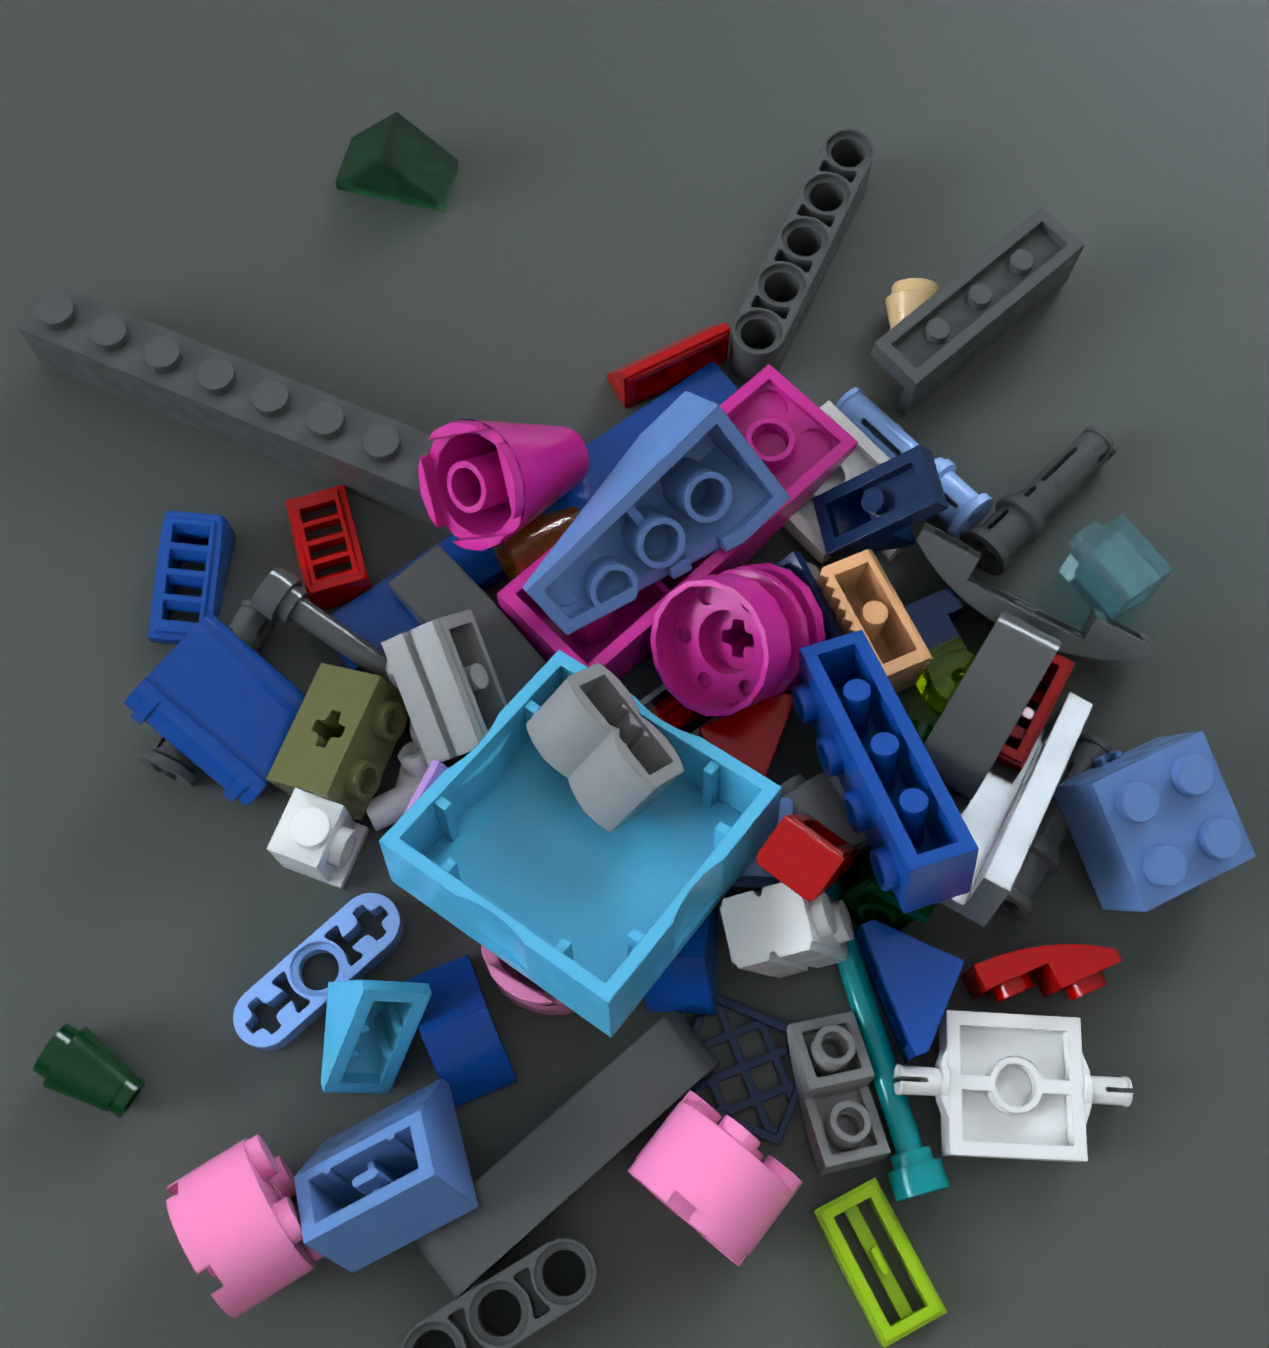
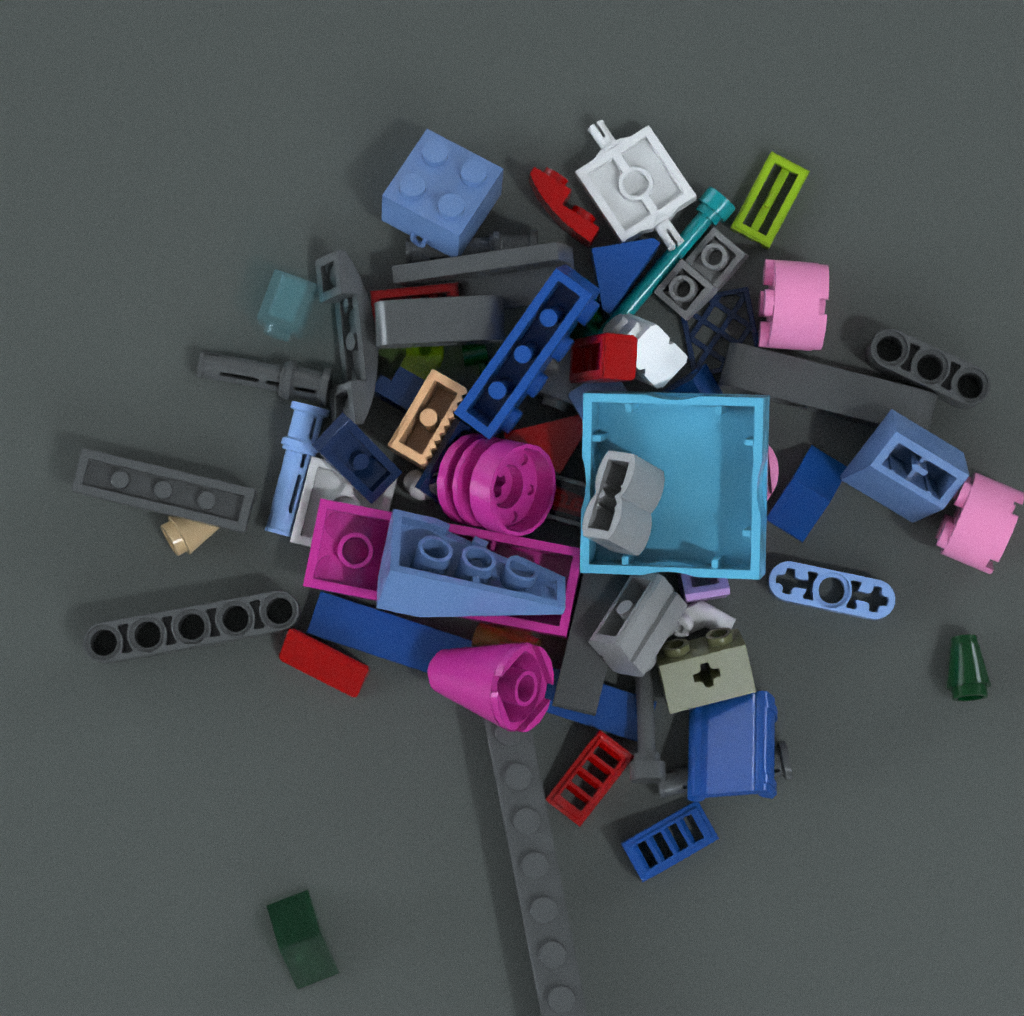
camera: 130 degrees left, 15 degrees up
(317, 838) = (766, 641): white brick -> none
(369, 1033) = (843, 536): medium azure slope -> none

